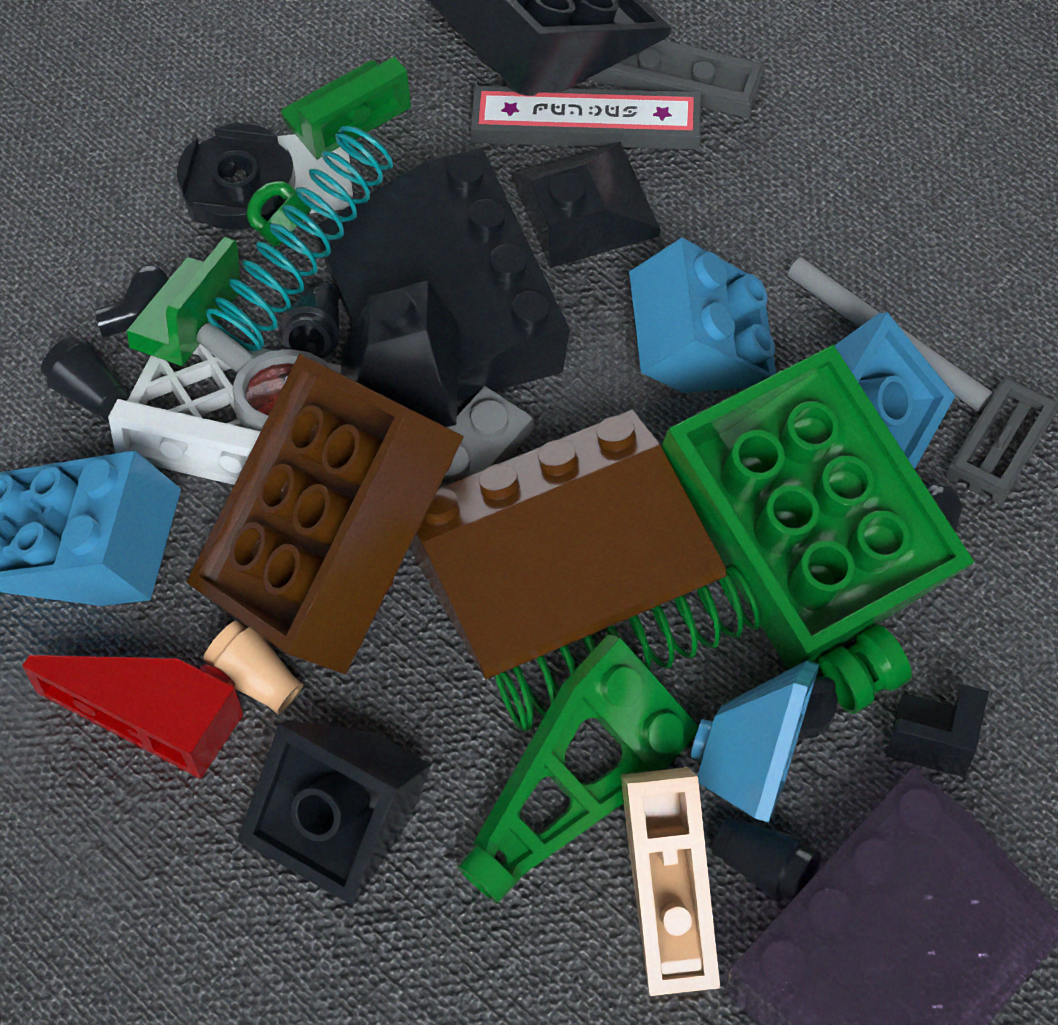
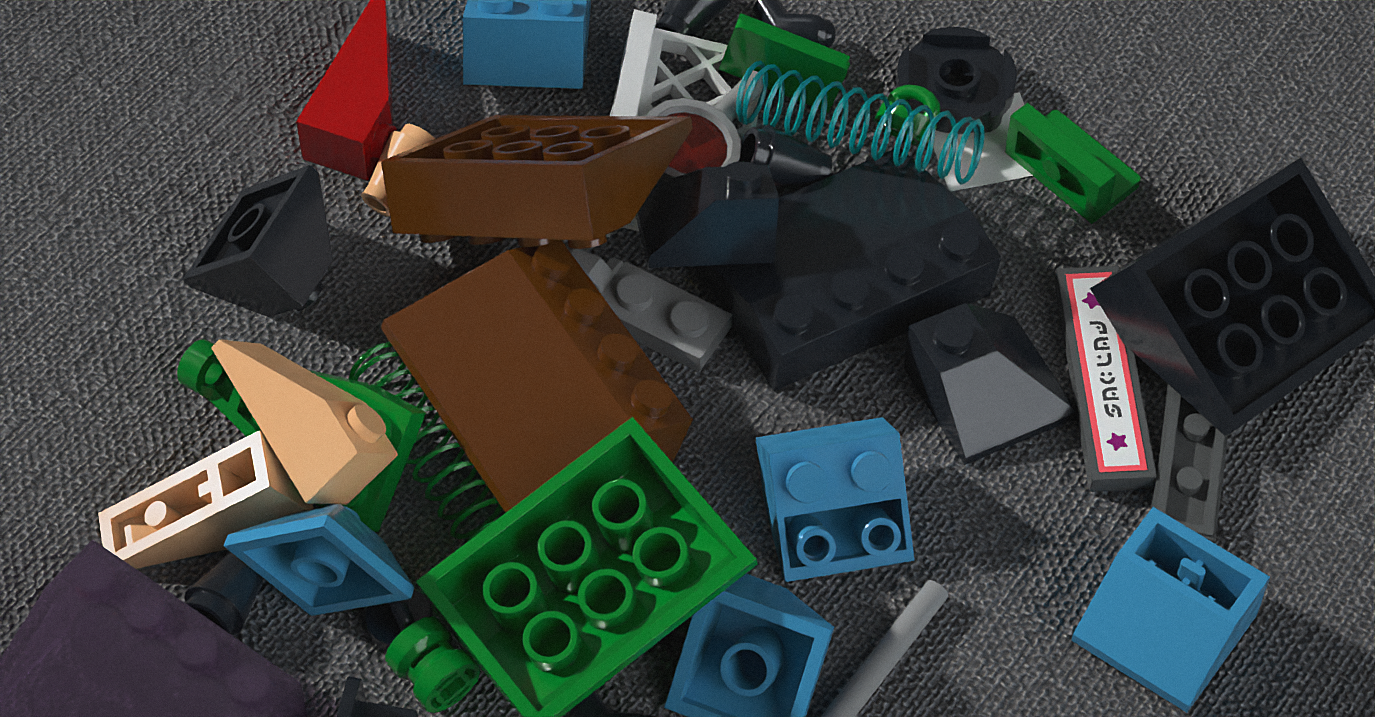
camera: 80 degrees right, 5 degrees down
(613, 737) = (317, 430): none -> light nougat slope
(843, 93) = (1171, 609): none -> dark azure slope

